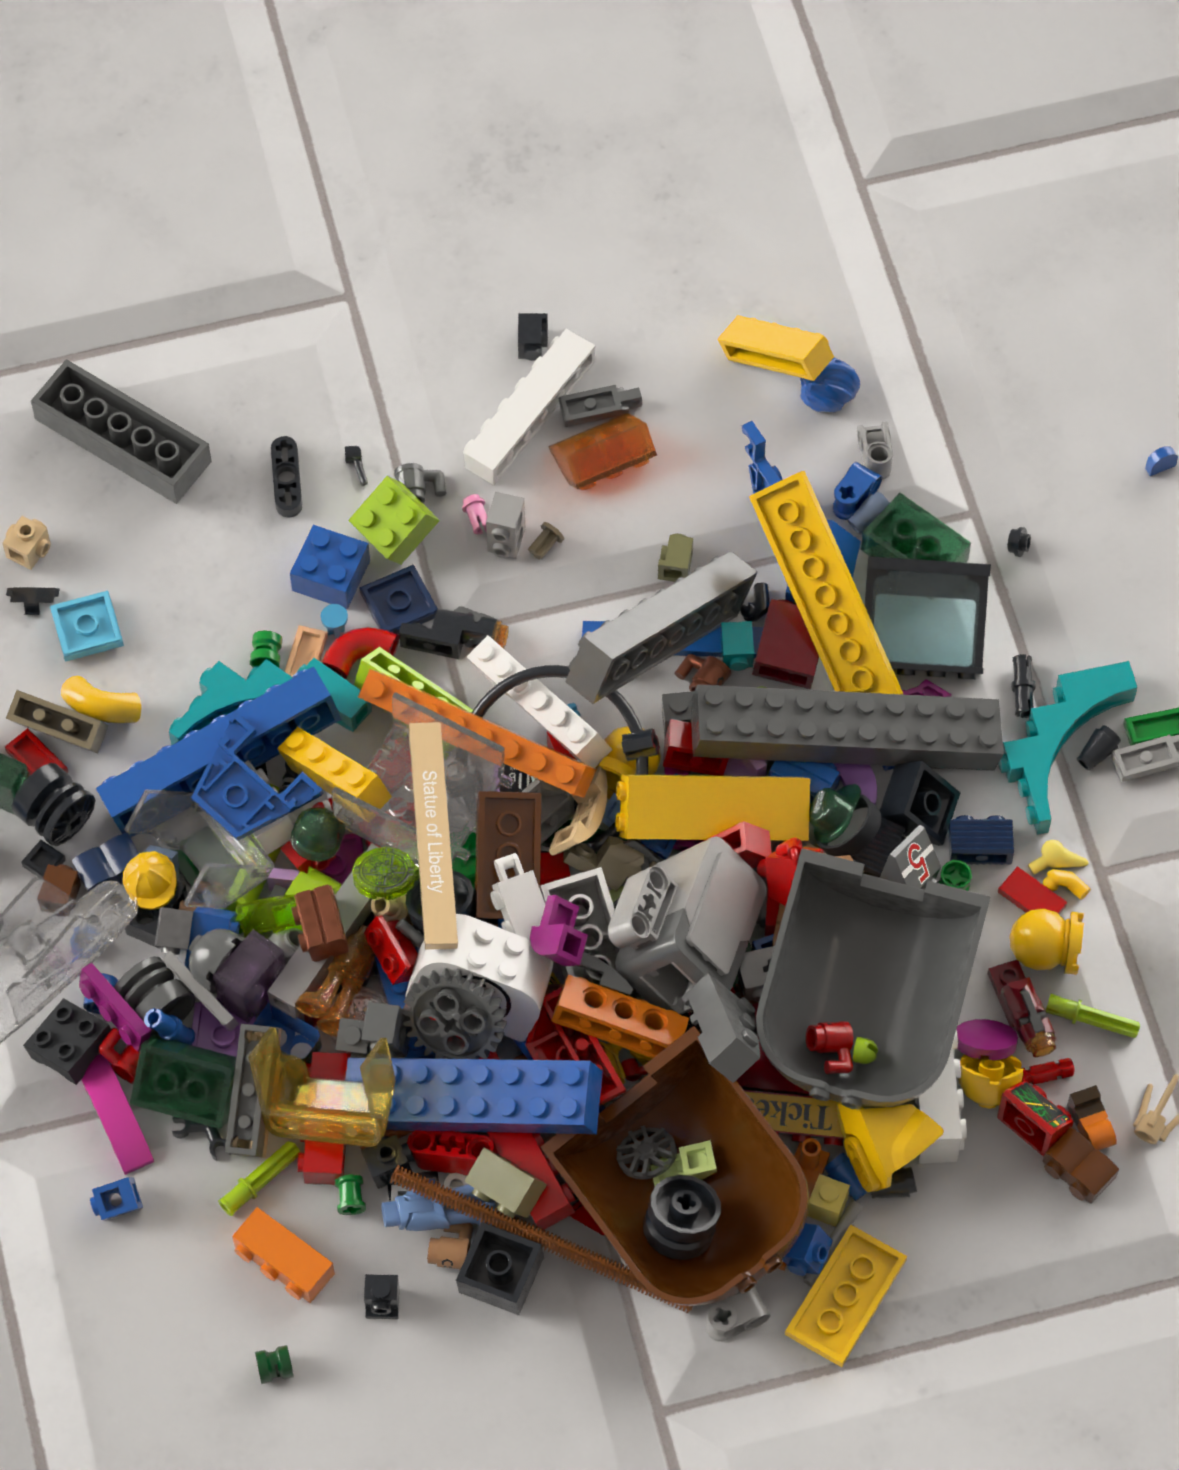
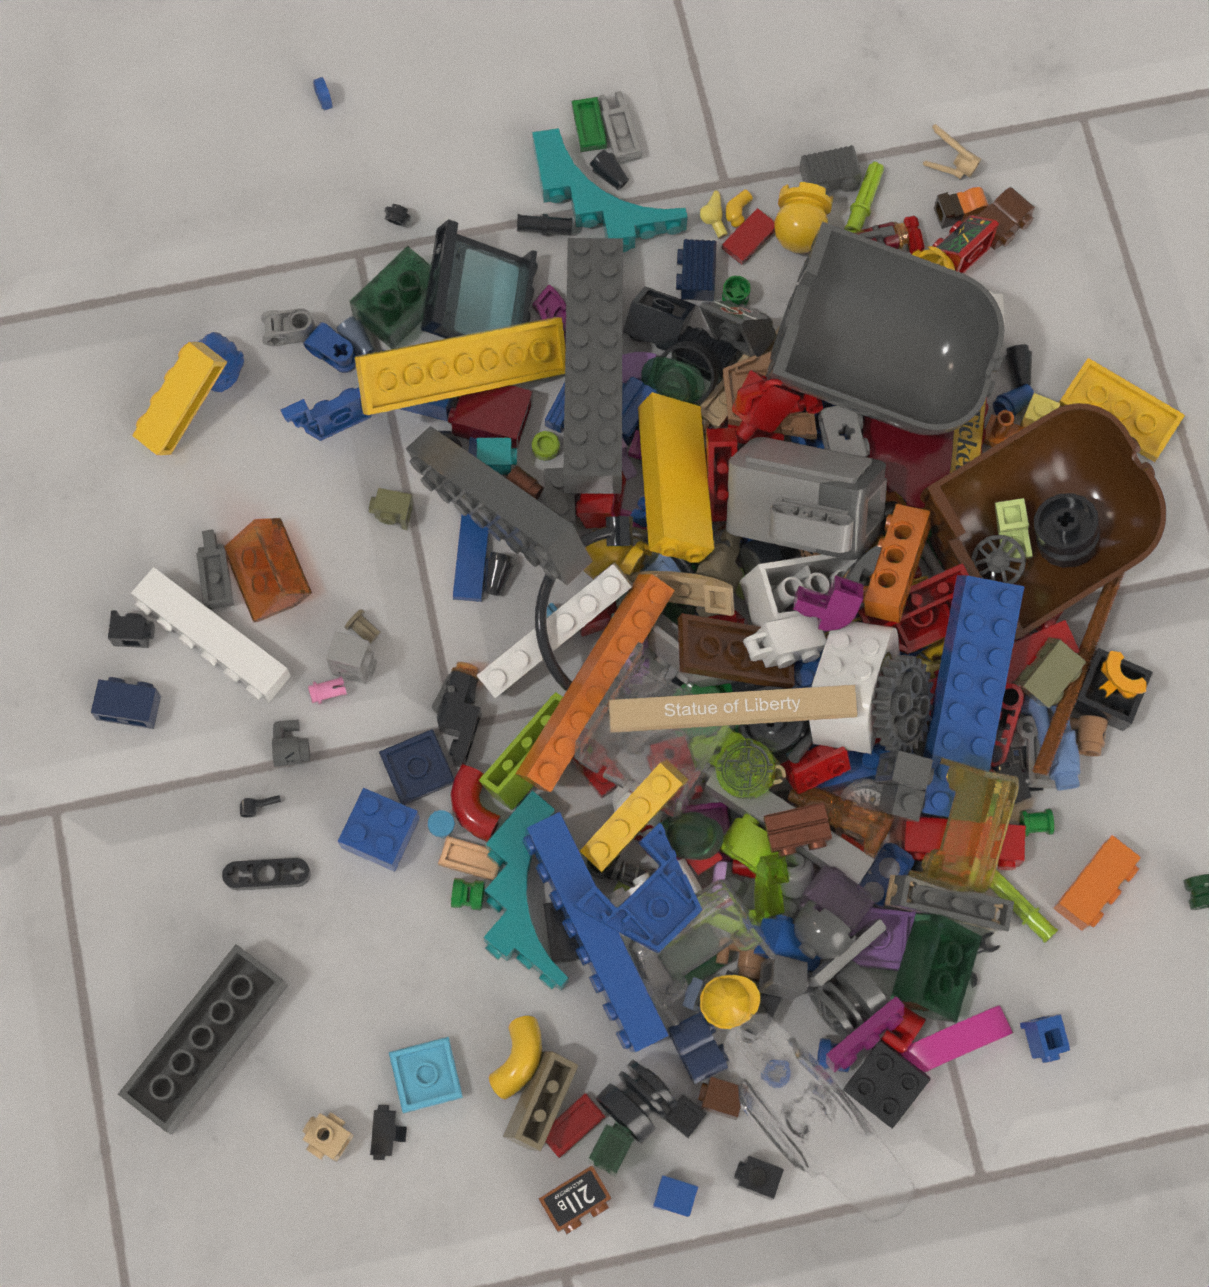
camera: 90 degrees left, 10 degrees up
(169, 1027) = (887, 980): blue pin -> none
(381, 1296) = (1135, 795): black brick -> none
(393, 520) = (336, 764): lime brick -> none
(455, 340) = (126, 703): none -> dark blue brick
(499, 1249) = (1112, 670): none -> light orange piece
(726, 1026) = (931, 457): dark grey wedge -> none
(832, 1038) = (916, 388): red piece -> none
(864, 1051) = (924, 363): lime hinge -> none
(884, 1140) = (1021, 354): yellow piece -> none
(1122, 977) = (832, 169): none -> dark grey brick

